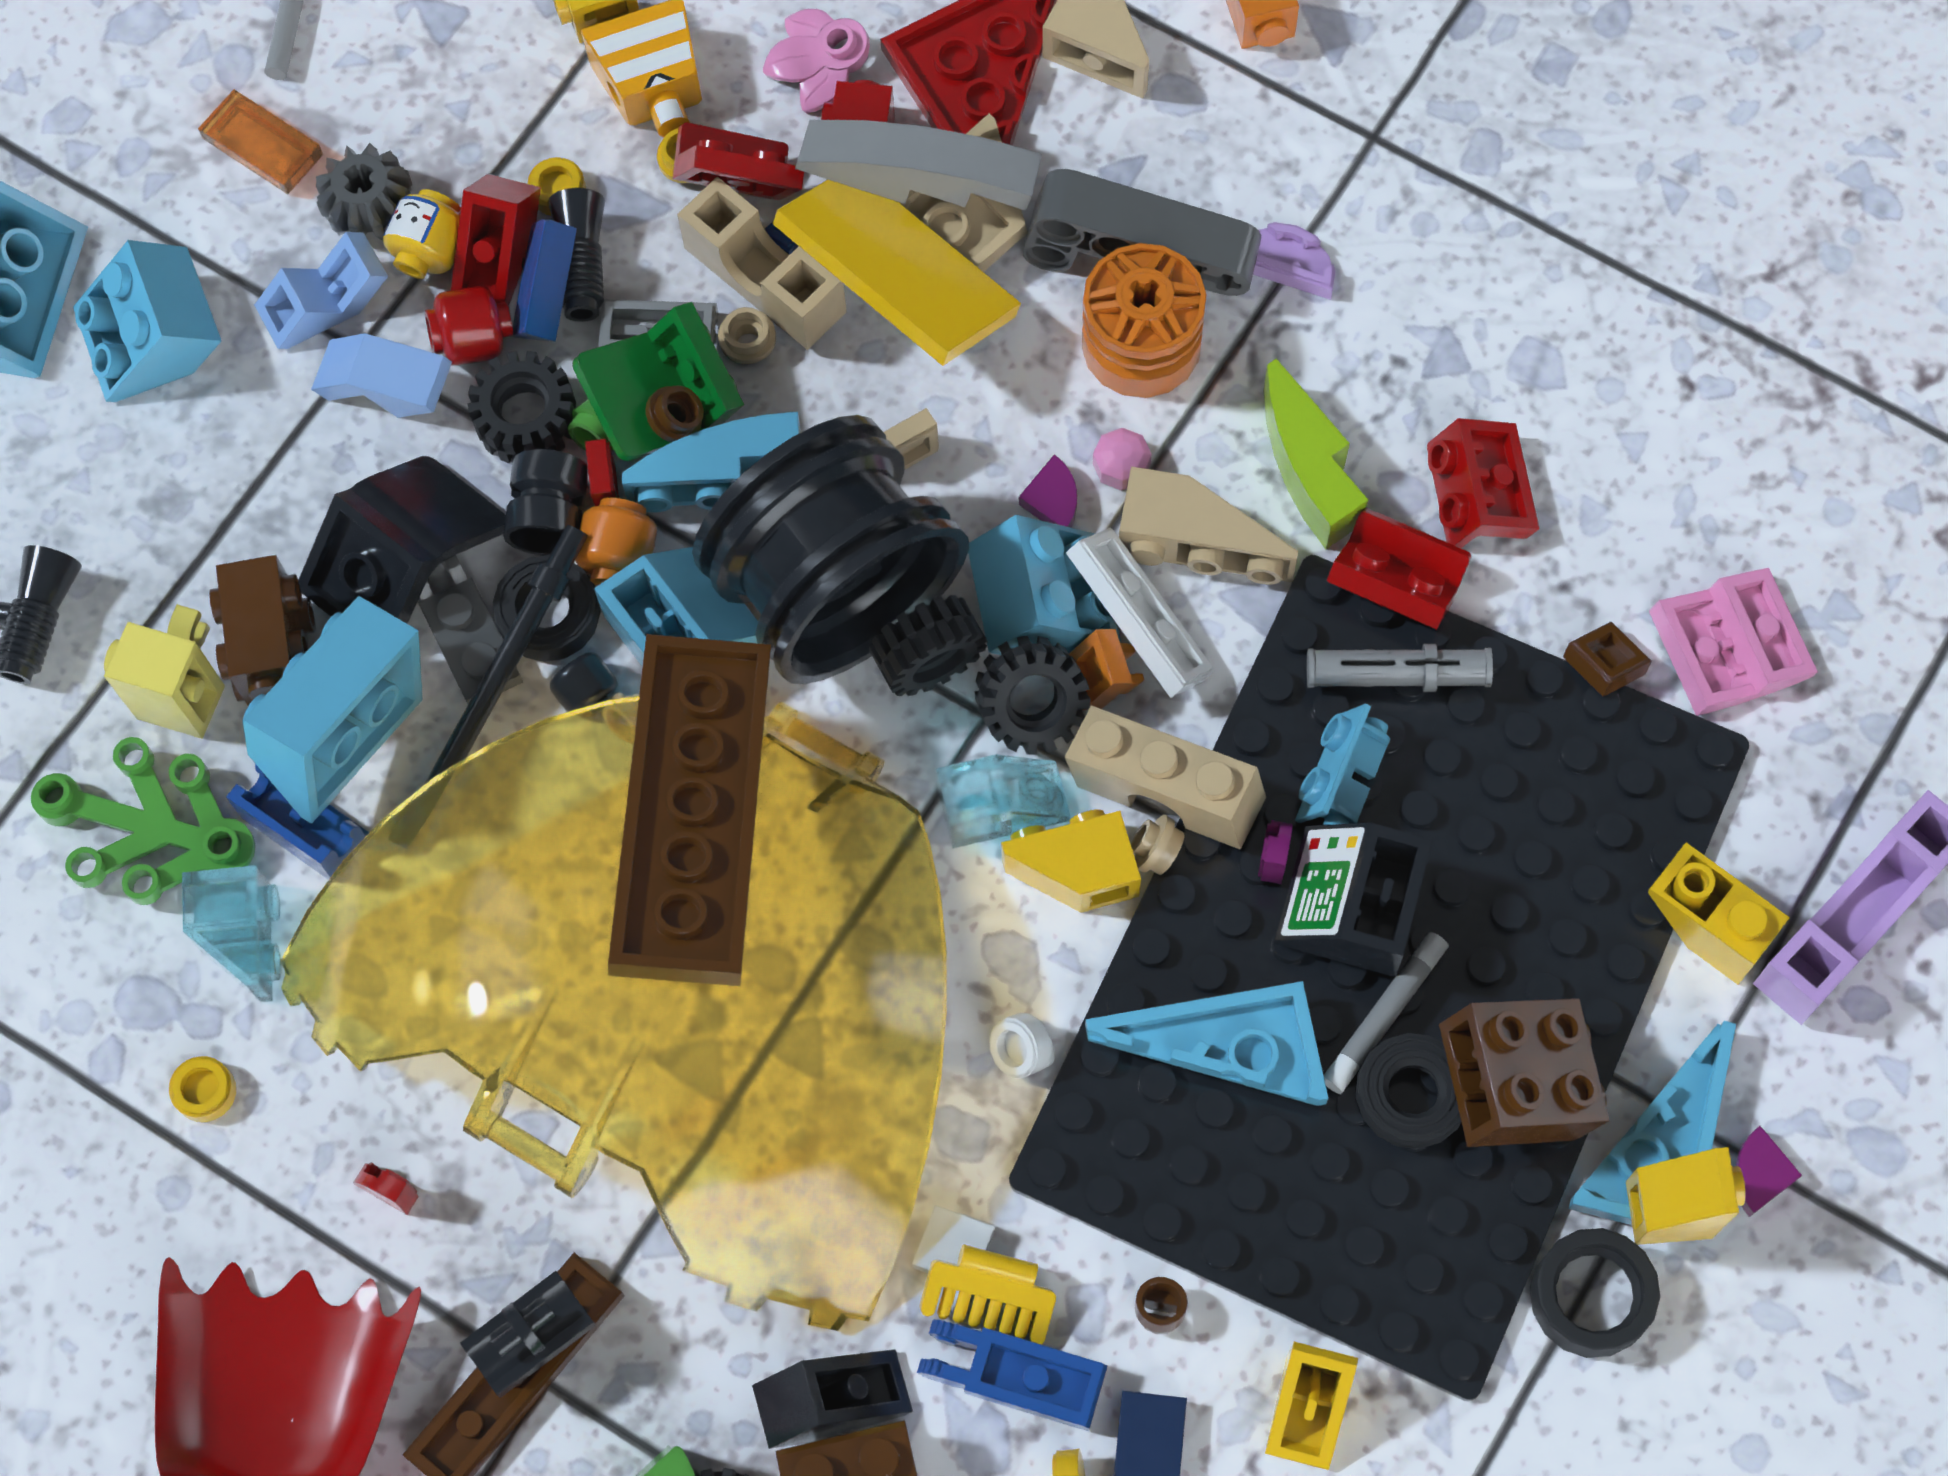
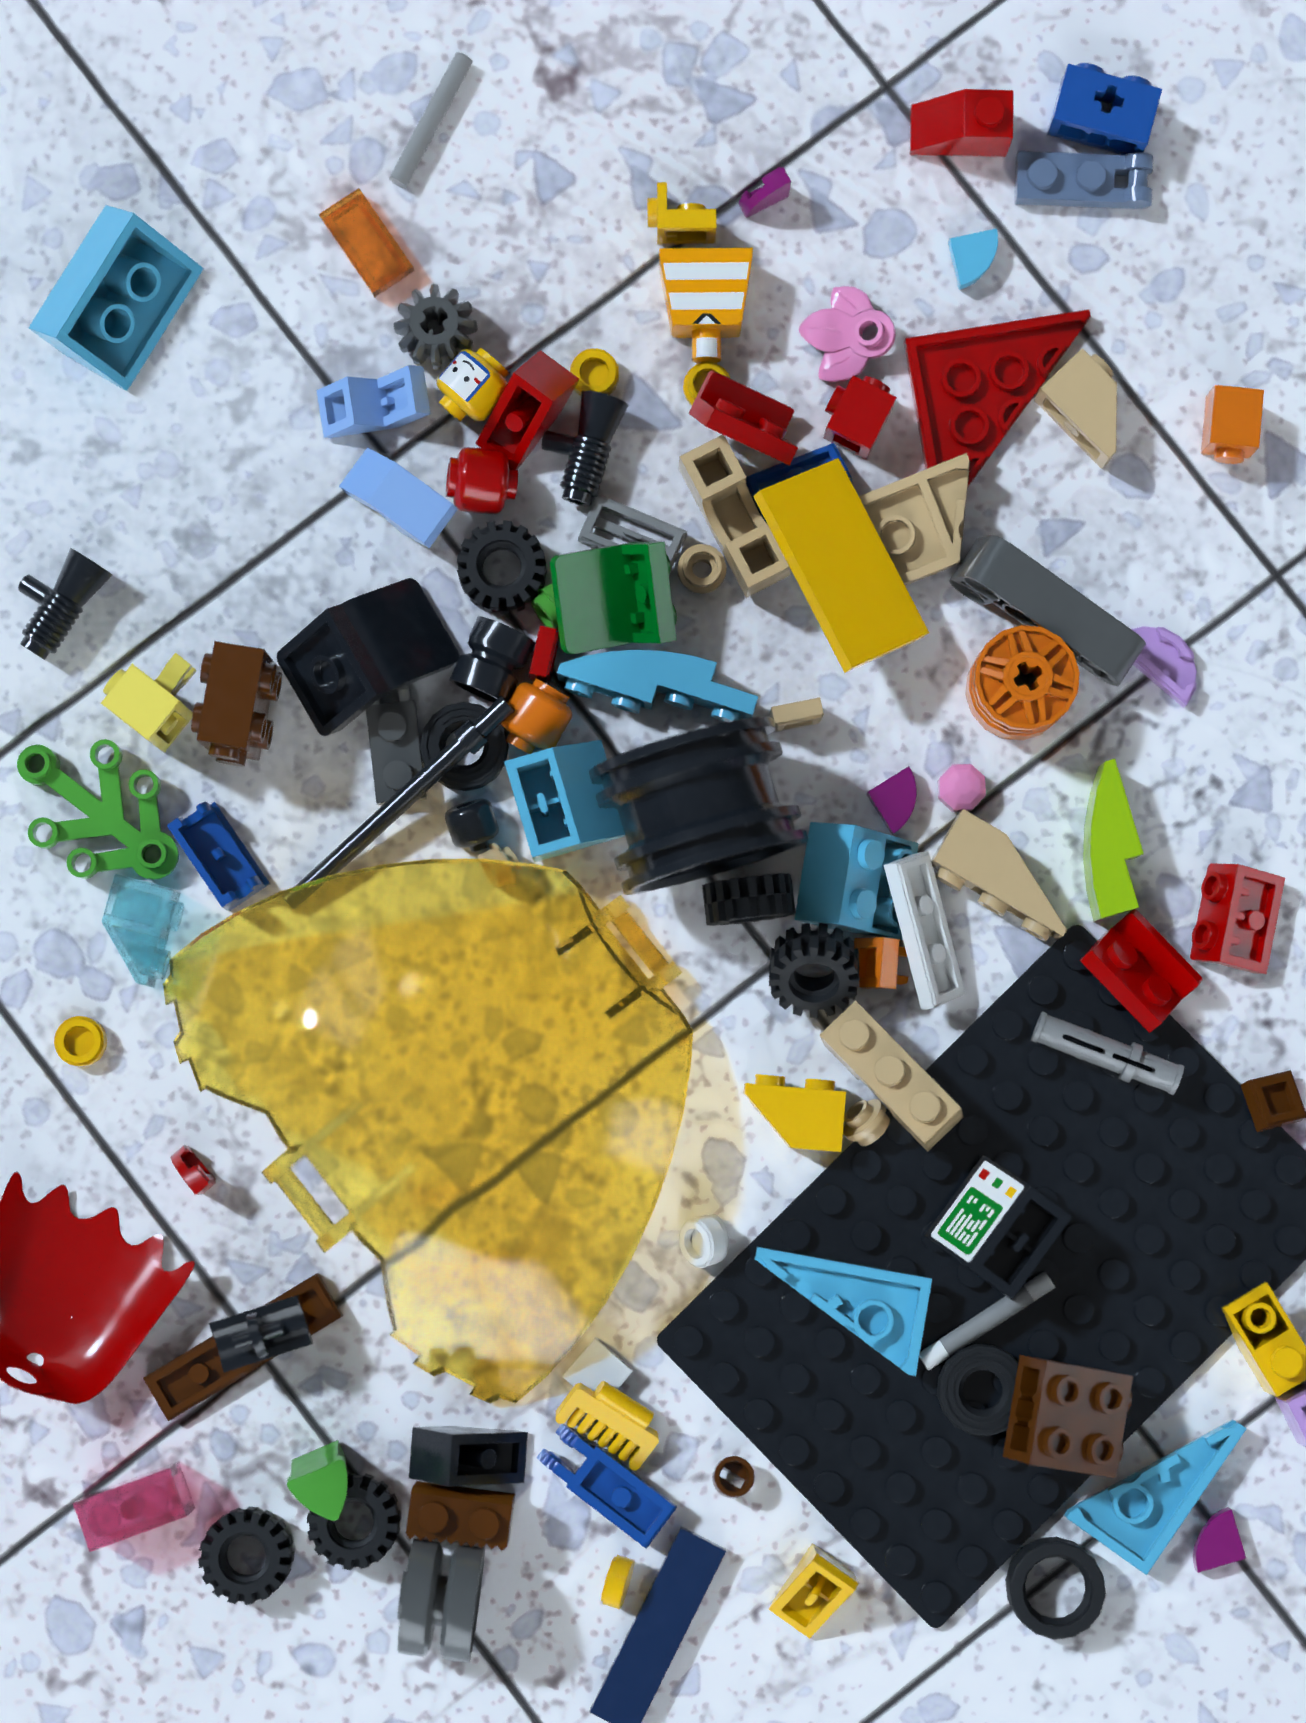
camera: 15 degrees right, 15 degrees up
(146, 320) = (225, 378): medium azure slope -> none
(335, 706) = (271, 784): medium azure slope -> none
(544, 280) = (553, 466): blue slope -> none
(682, 405) = (629, 627): reddish brown plate -> none
(690, 812) = (514, 998): reddish brown plate -> none
(928, 160) = (891, 480): light grey slope -> none
(999, 797) = (761, 1042): clear light blue slope -> none
(1275, 851) = (954, 1163): magenta tile -> none
(1351, 746) = (1043, 1100): medium azure hinge -> none
(1685, 1197) = (1146, 1557): yellow slope -> none

